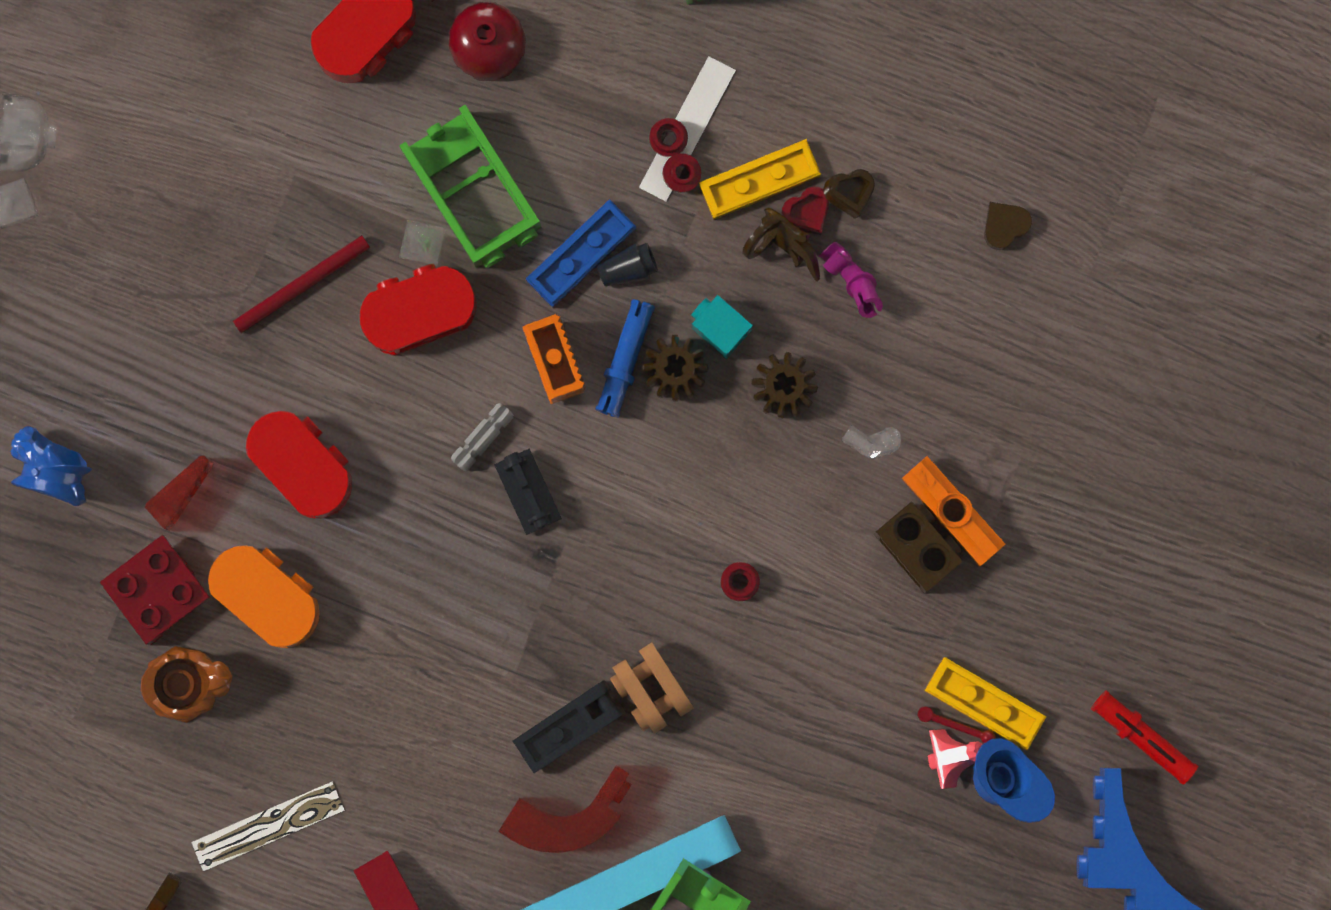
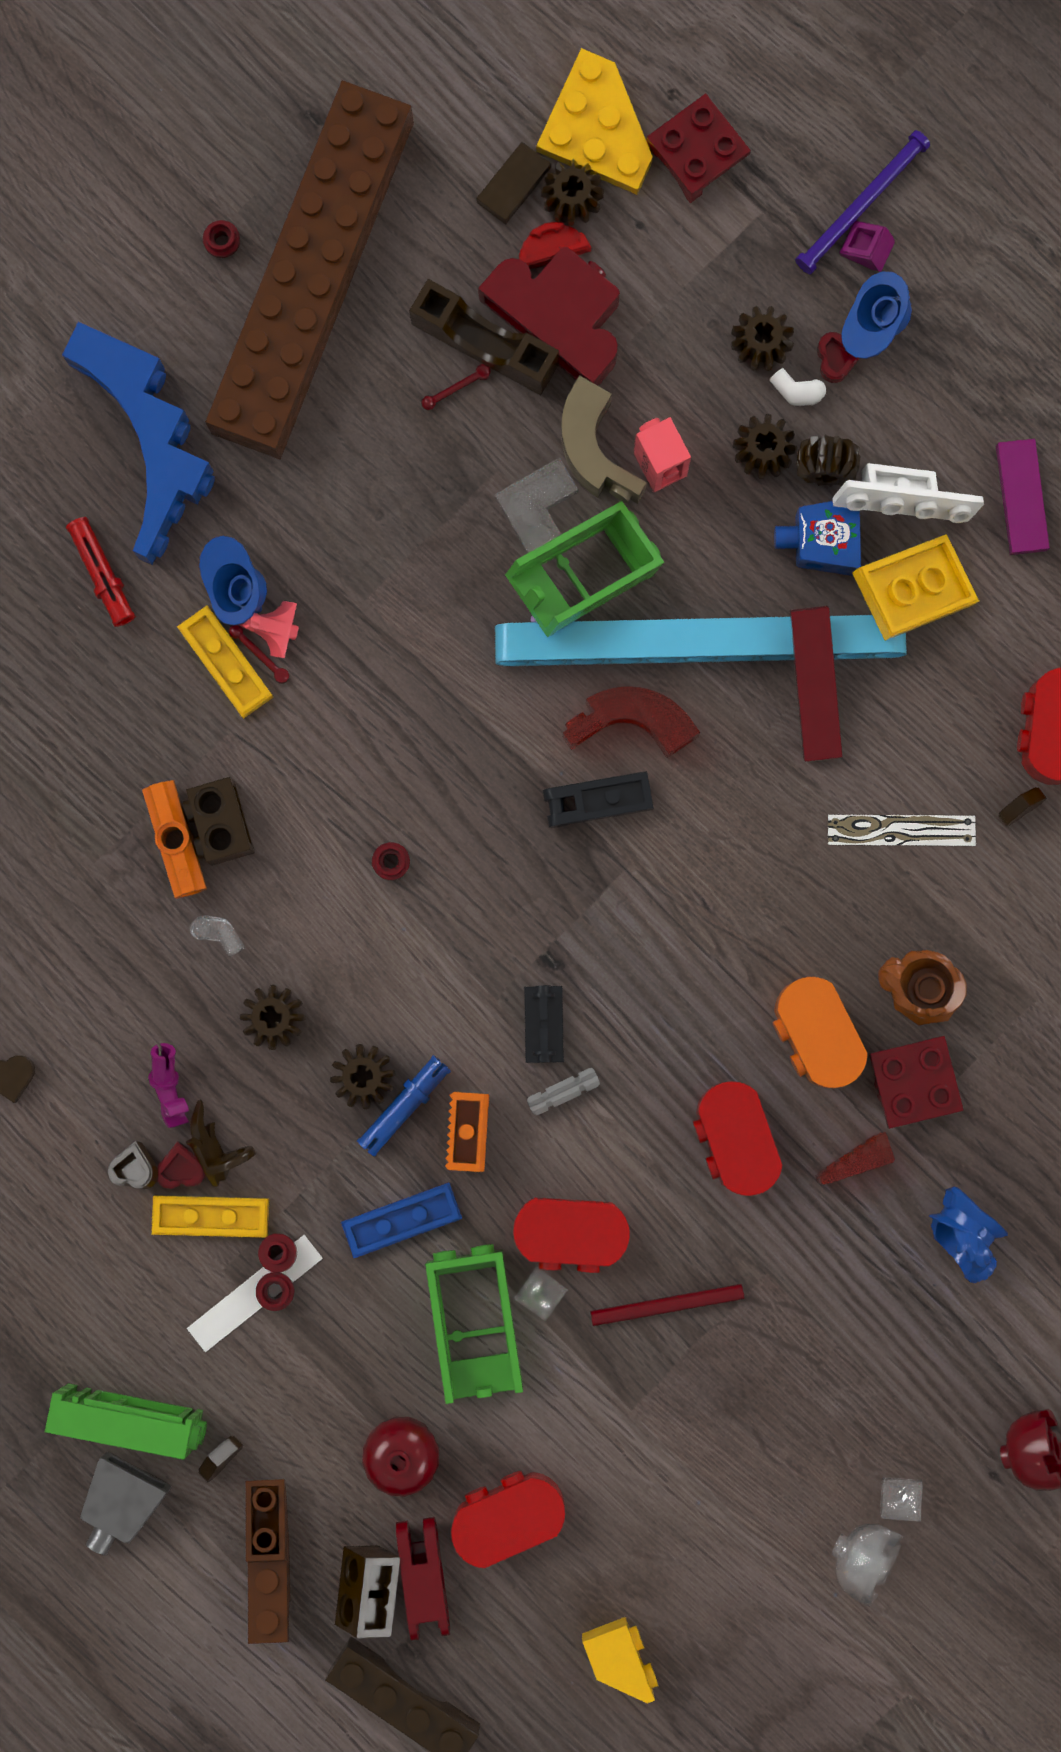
camera: 155 degrees left, 0 degrees up
(628, 266) = (363, 1188): black cone -> none
(628, 681) = (528, 815): medium nougat brick -> none
(720, 325) = (305, 1097): teal brick -> none

